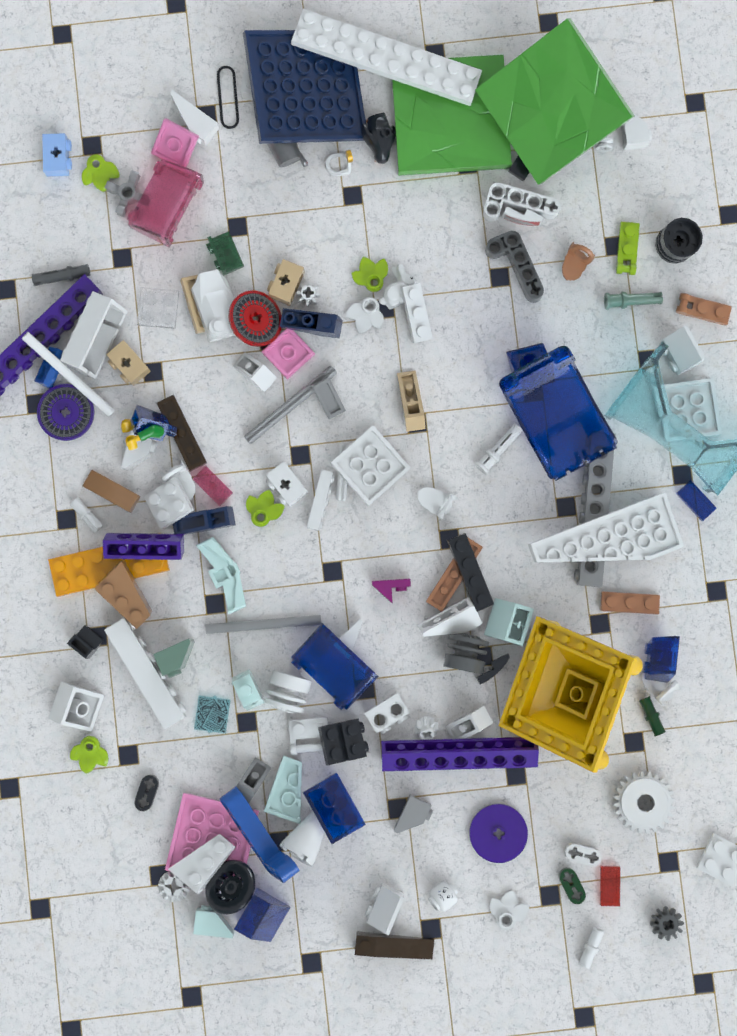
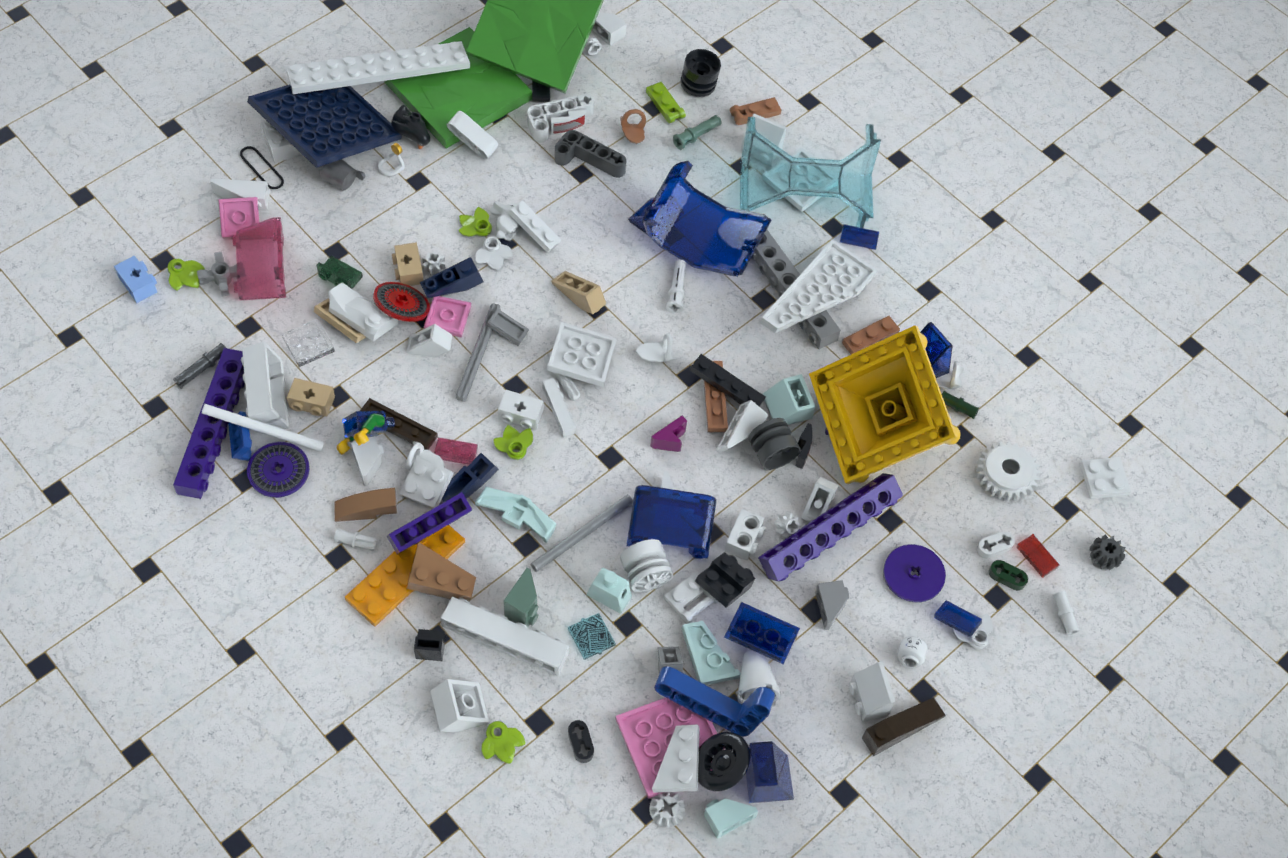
camera: 40 degrees left, 25 degrees down
(425, 182) = (472, 135): none -> white beam
(501, 894) = (958, 618): none -> clear blue tile

